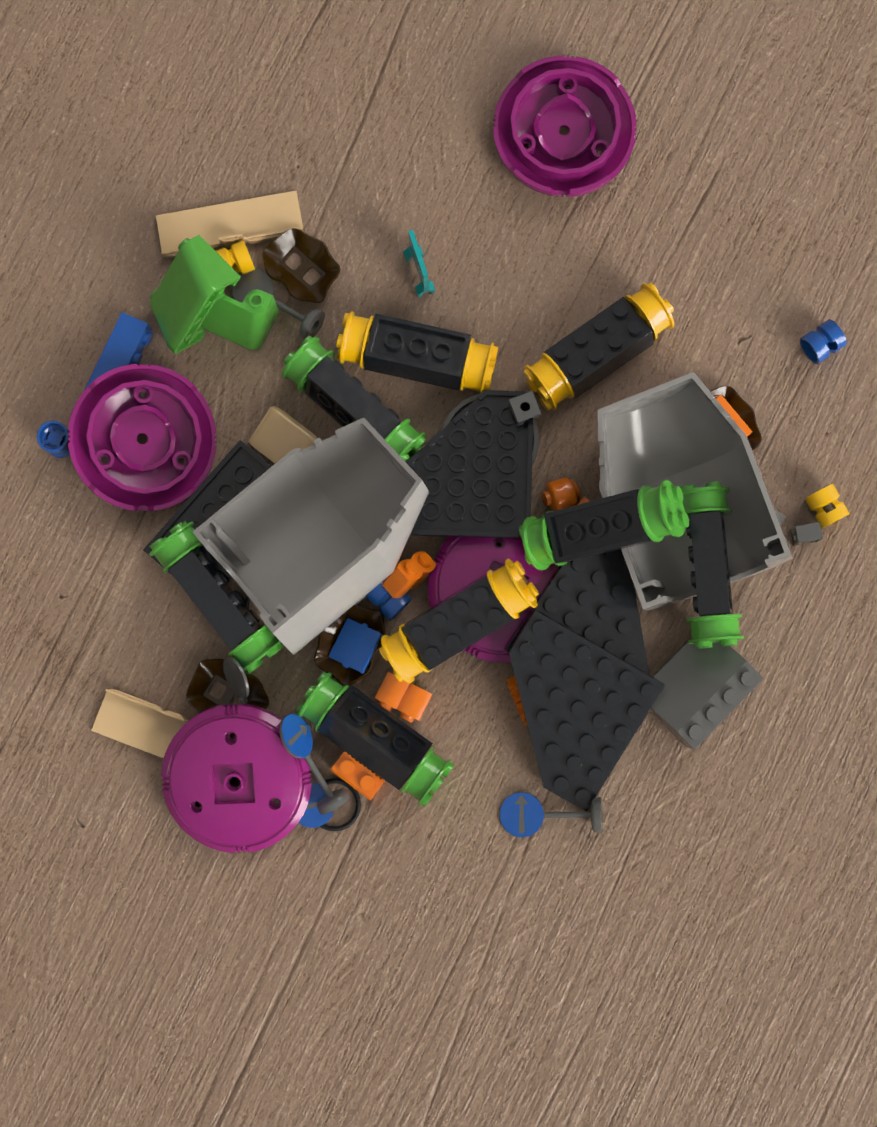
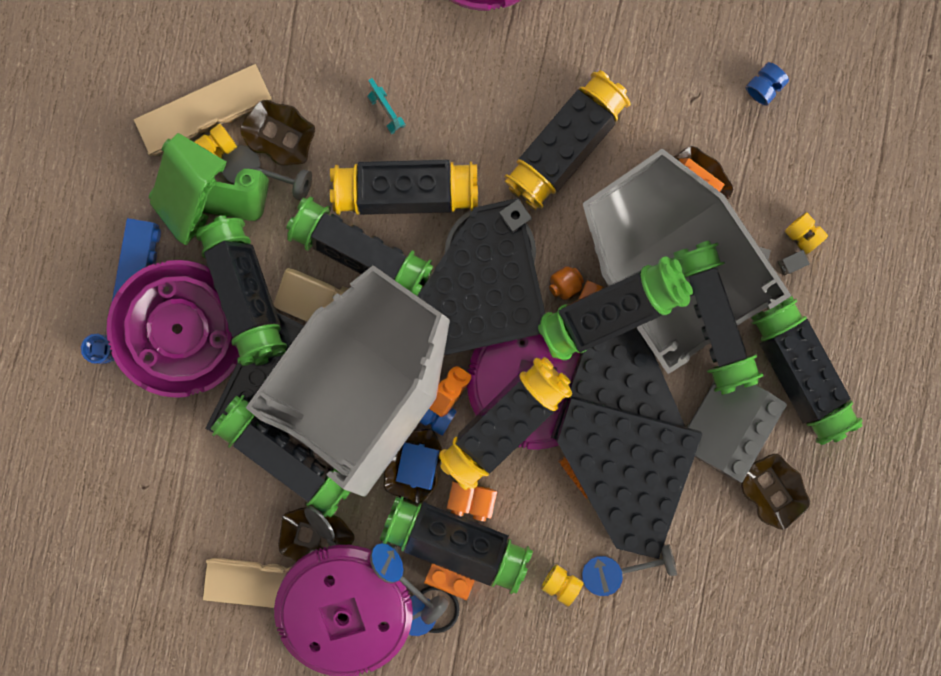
camera: 10 degrees left, 5 degrees up
(220, 415) = (241, 290): none -> black brick
(476, 812) = (562, 585): none -> yellow wheel
(744, 763) = (785, 480): none -> dark brown piece
(791, 650) = (806, 372): none -> black brick

